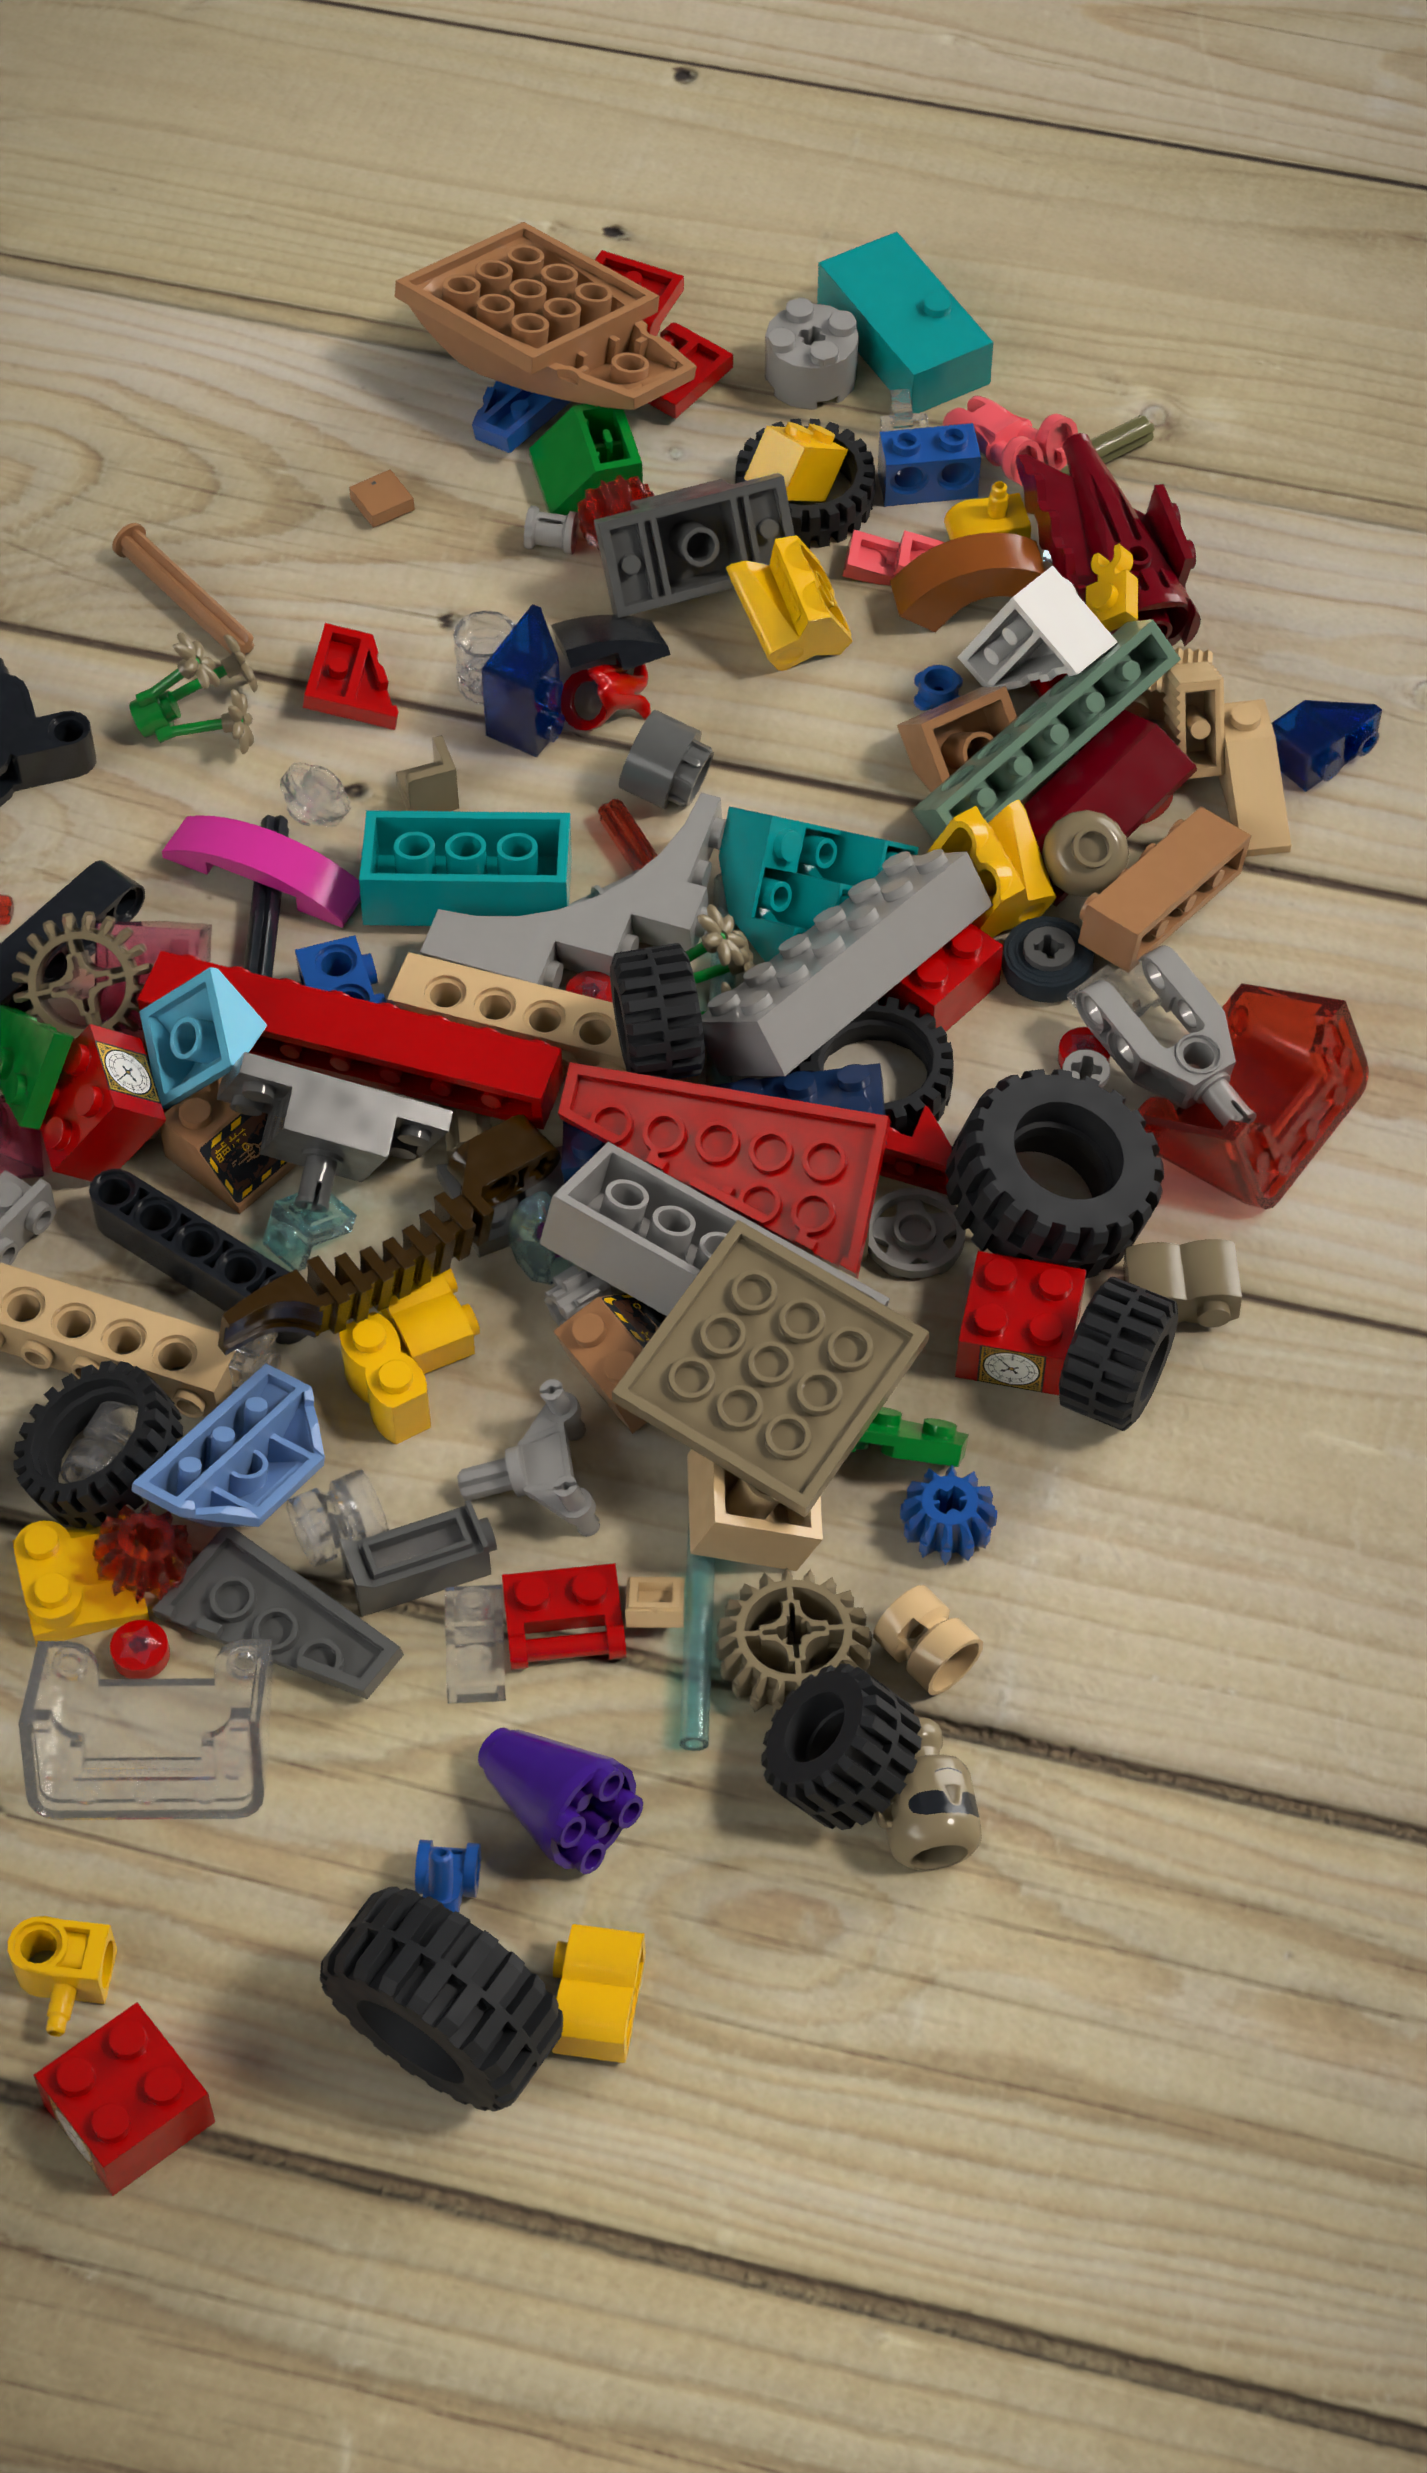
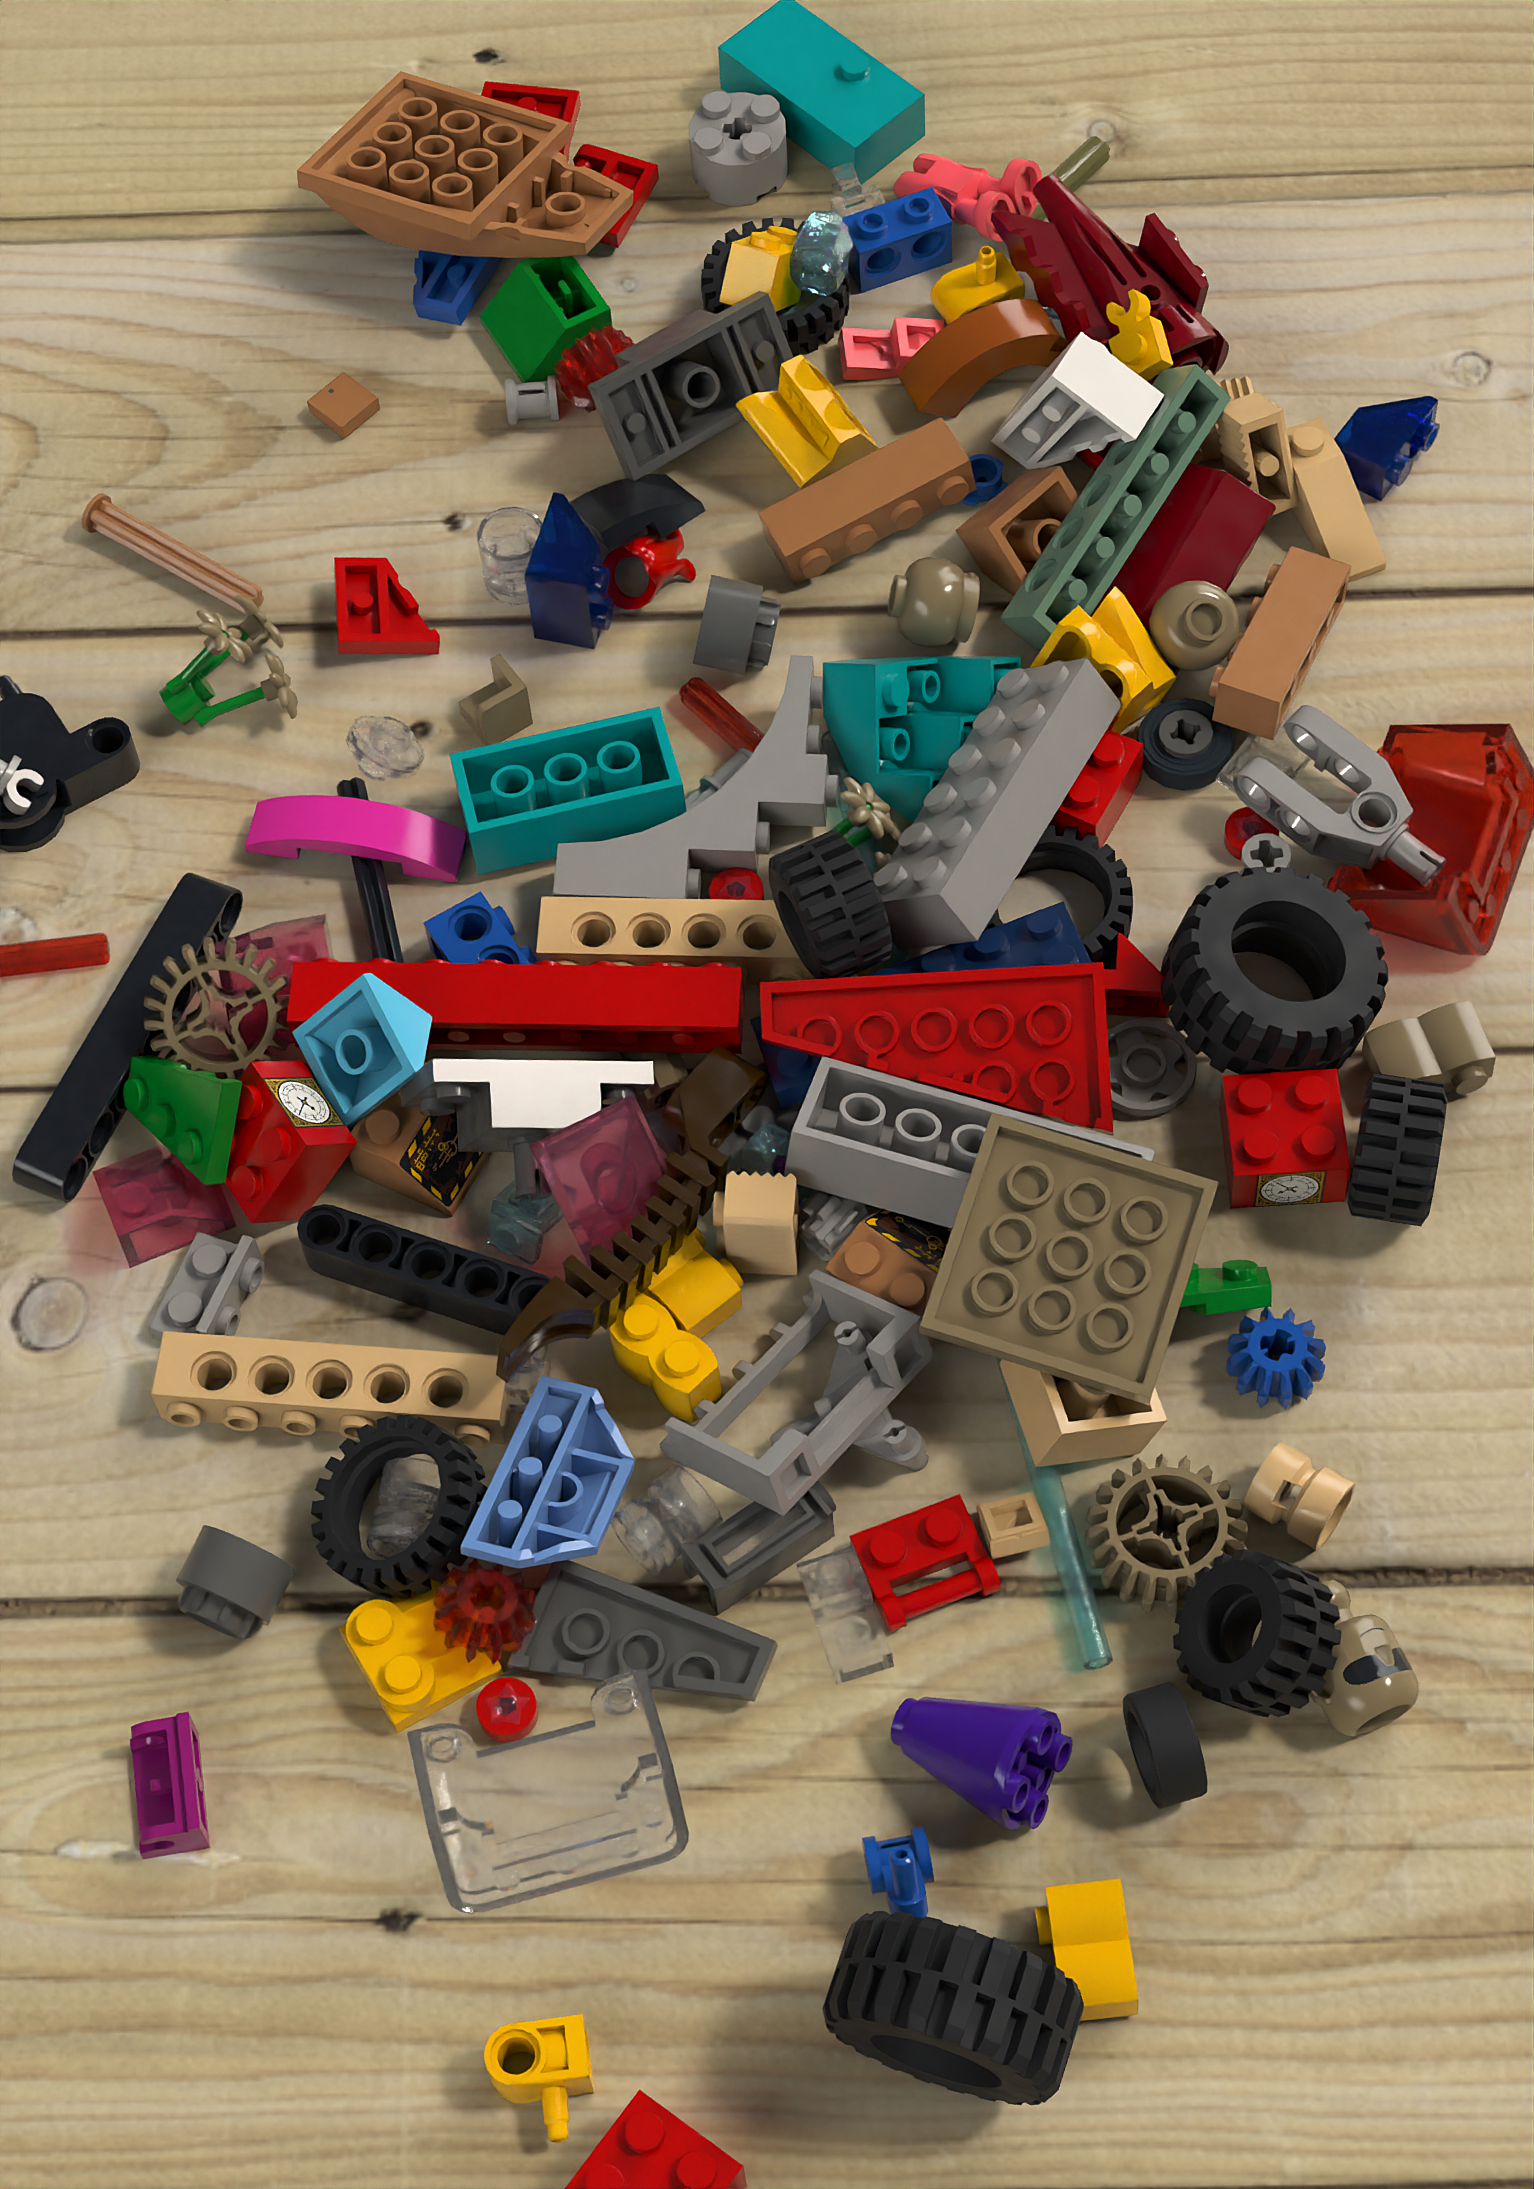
camera: 10 degrees left, 5 degrees up
(375, 1192) = (602, 1172): none -> clear pink slope
(459, 1488) = (797, 1459): none -> light grey hinge
(508, 1279) = (758, 1223): none -> tan brick
(725, 1826) = (1165, 1745): none -> black tyre
(824, 681) = (868, 501): none -> medium nougat brick
(849, 456) = (821, 253): none -> clear light blue rock
(854, 782) = (934, 602): none -> dark tan piece

